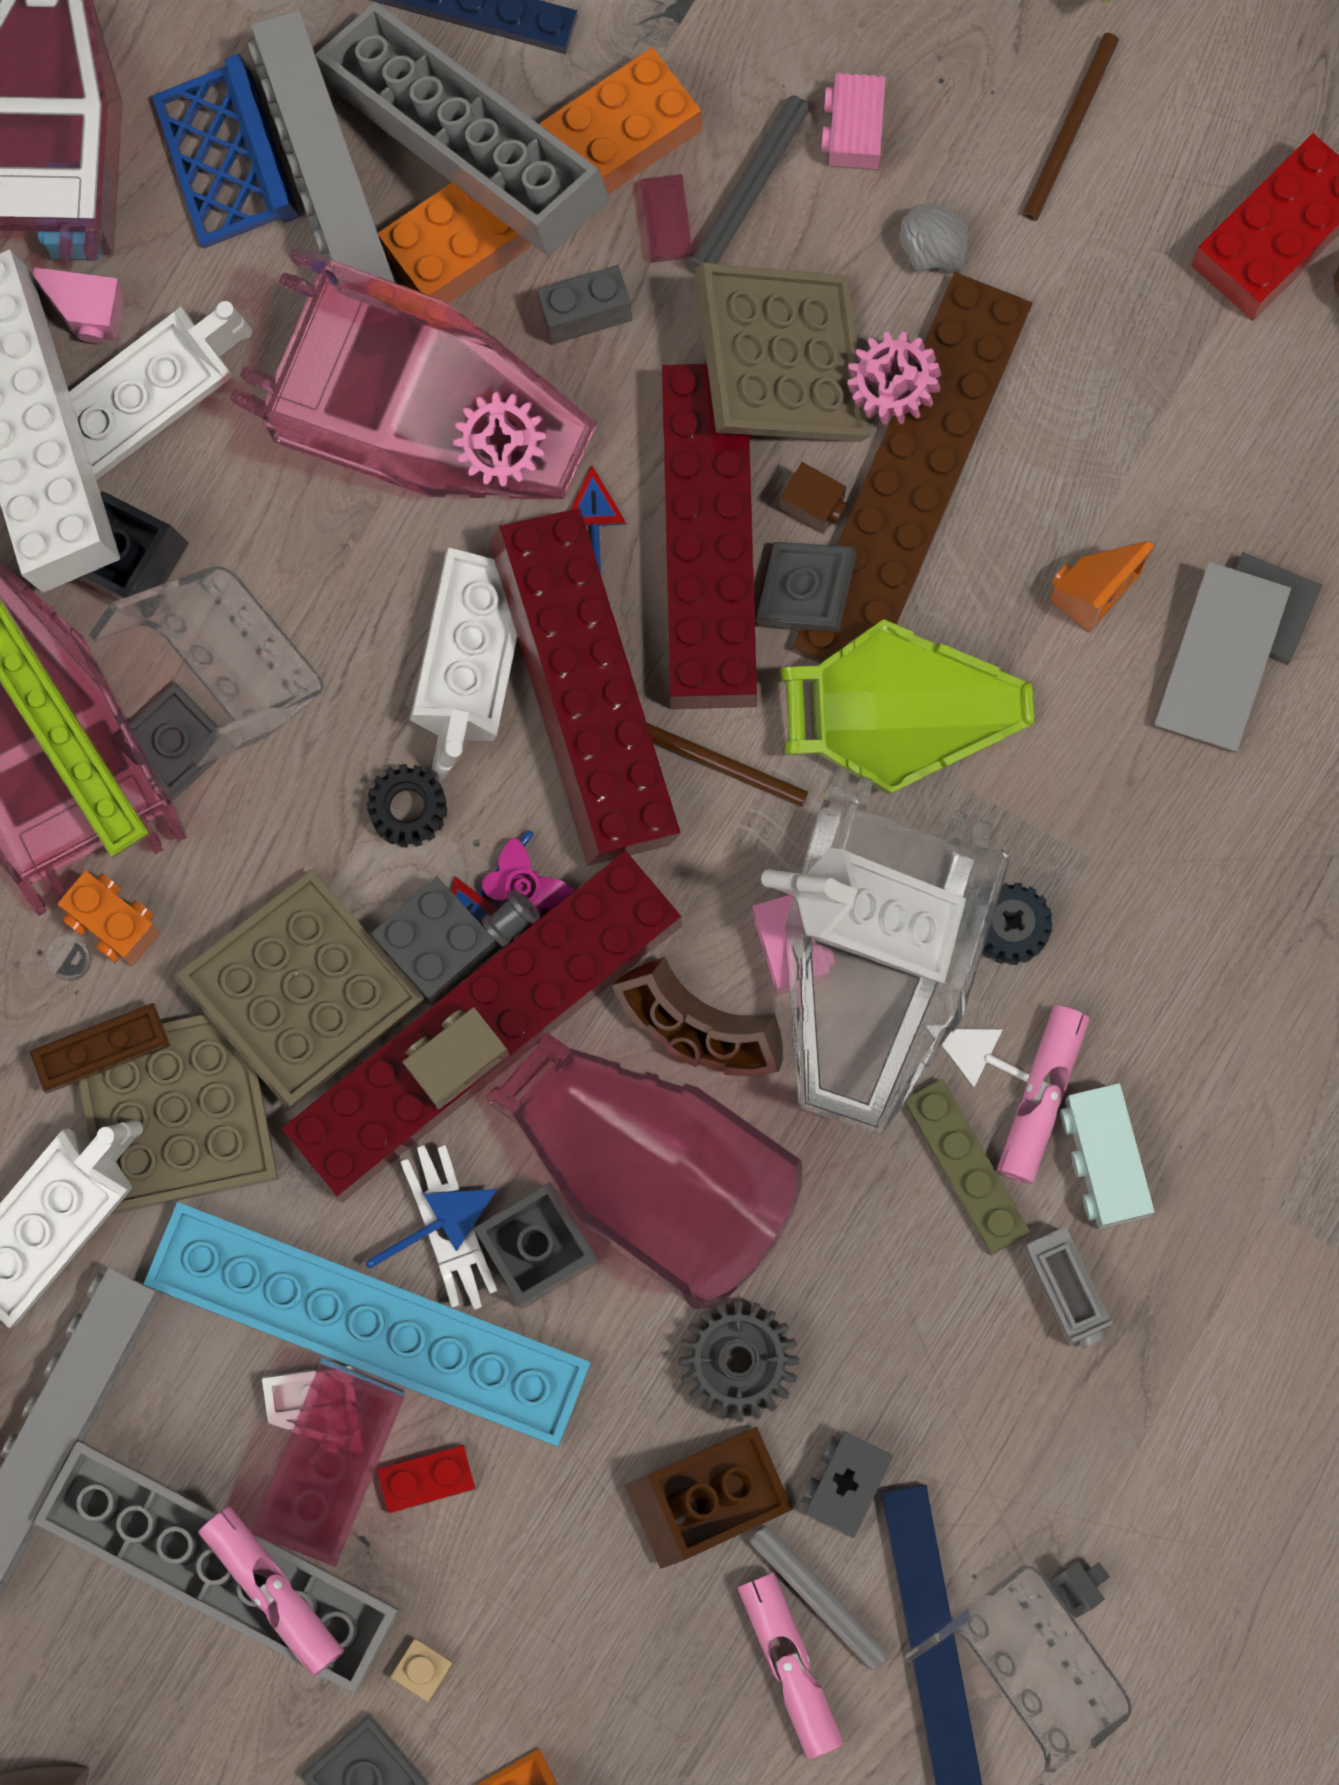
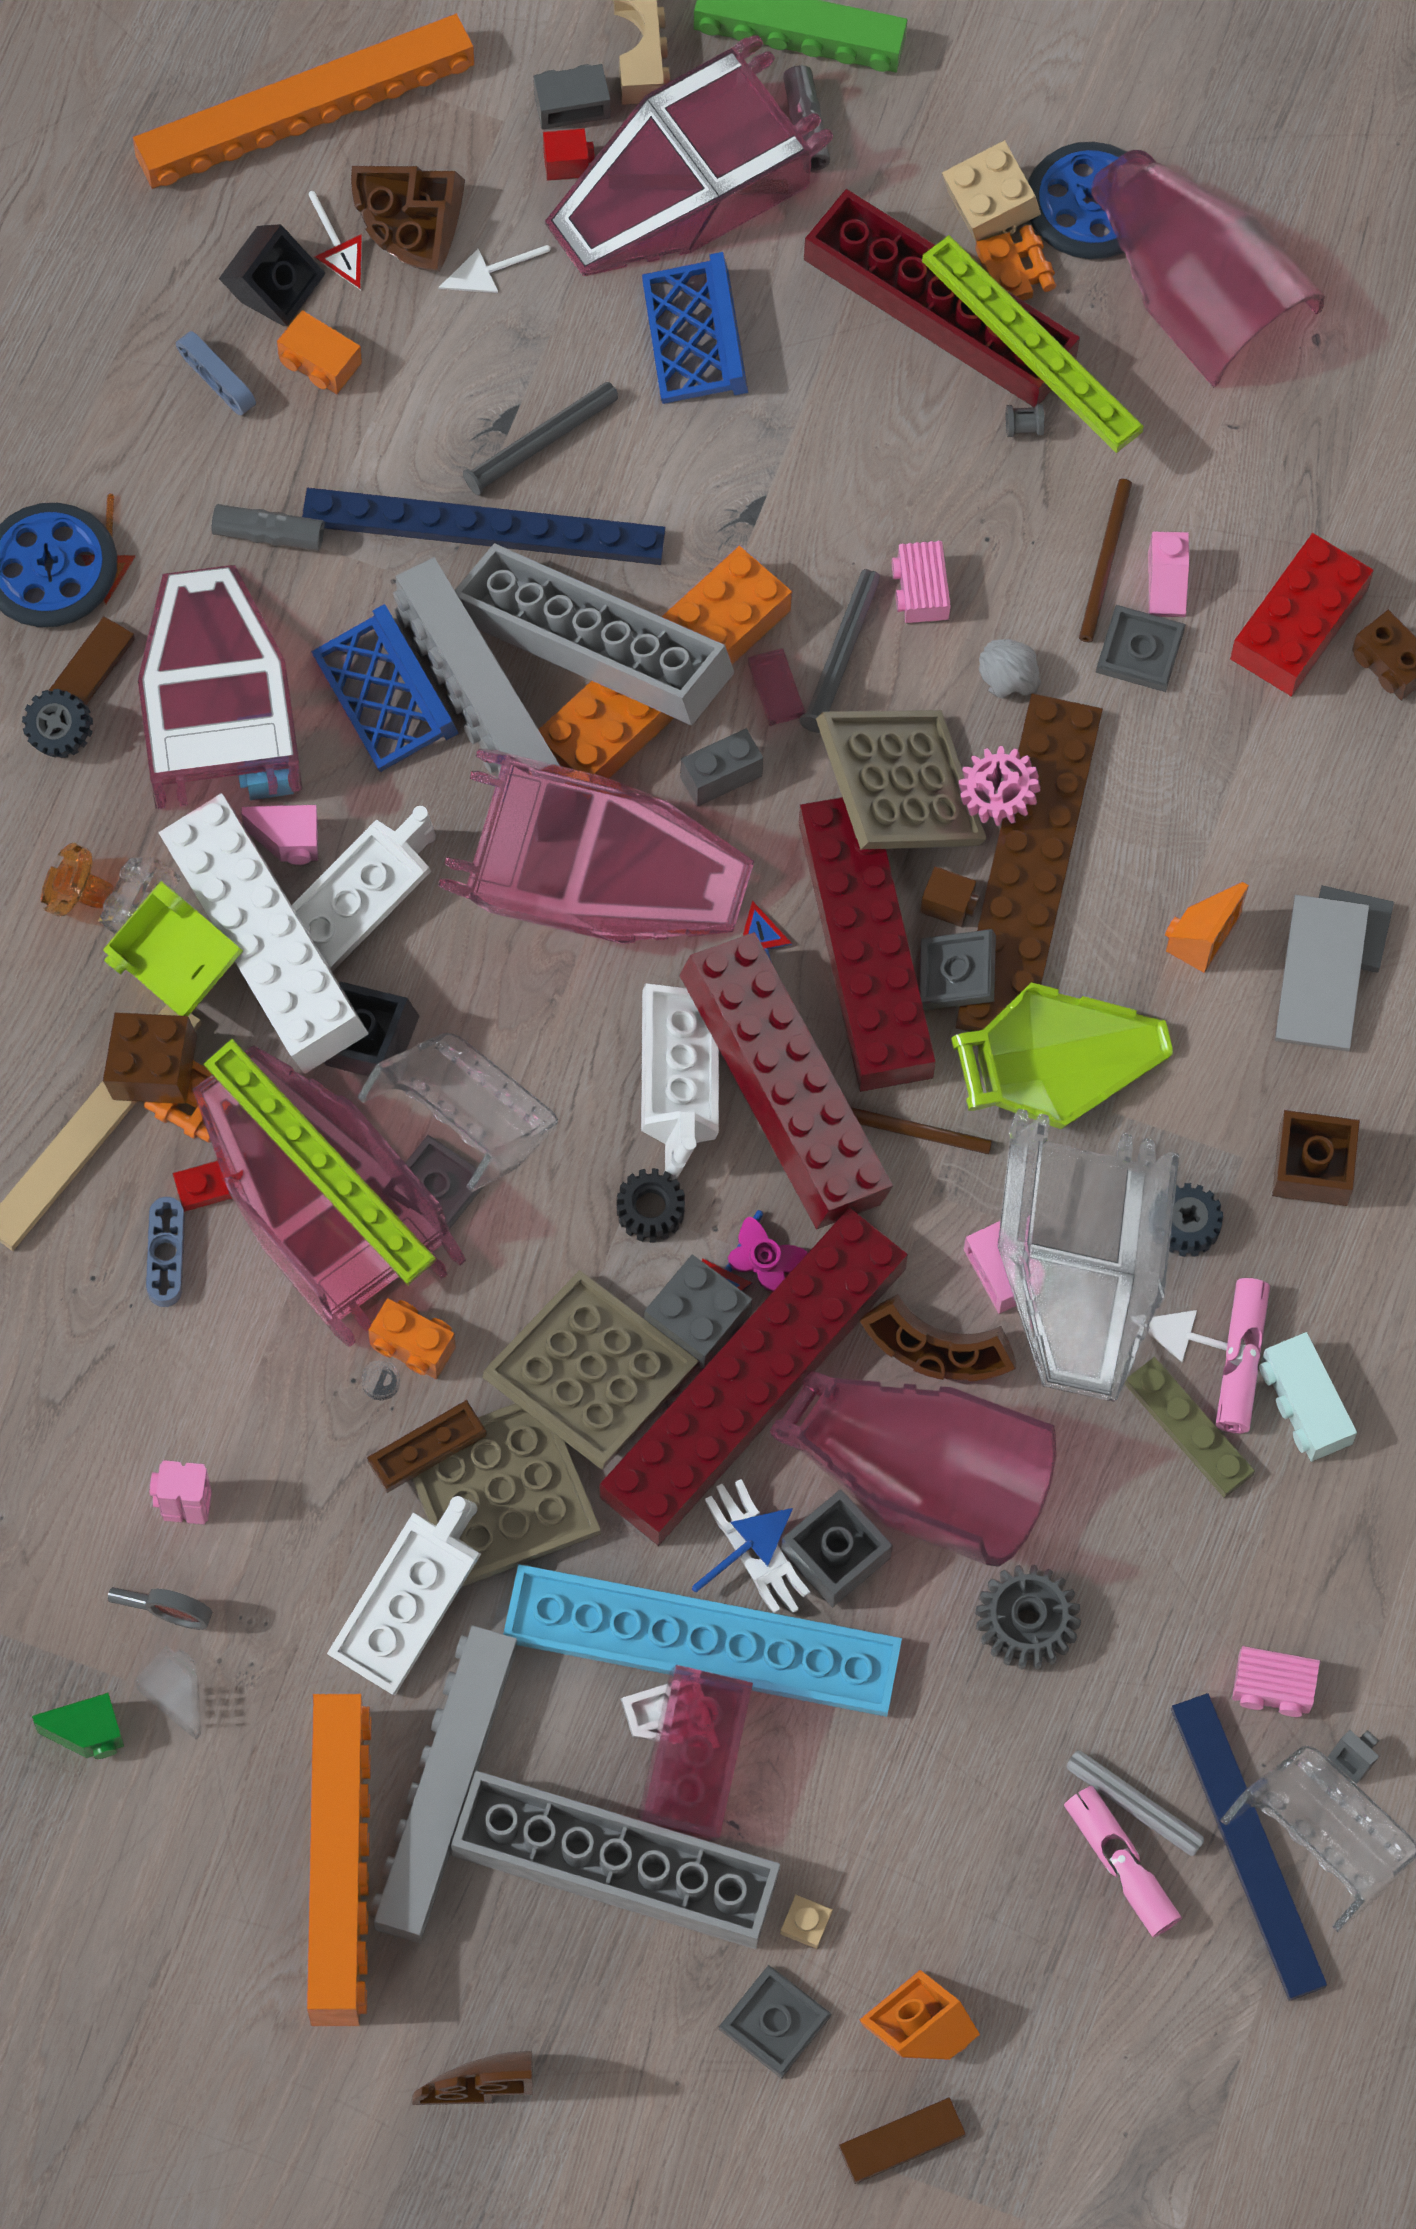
camera: 15 degrees left, 10 degrees down
(283, 1606) = (694, 1882): bright pink piece -> none
(426, 1479) = (778, 1762): red plate -> none
(454, 1056) = (740, 1396): dark tan brick -> none
(481, 440) = (657, 889): bright pink gear -> none
(511, 918) = (761, 1279): dark grey bush -> none
(708, 1497) = (1023, 1734): reddish brown slope -> none
(868, 1469) = (1143, 1725): dark grey brick -> none
(875, 912) = (1075, 1216): white hinge -> none
(1006, 1485) = (1275, 1681): none -> bright pink brick
(1068, 1288) = (1295, 1510): light grey window -> none
(1090, 237) = (1140, 648): none -> dark grey tile
(1138, 155) = (1168, 573): none -> bright pink slope
(1172, 877) = (1316, 1158): none -> reddish brown brick

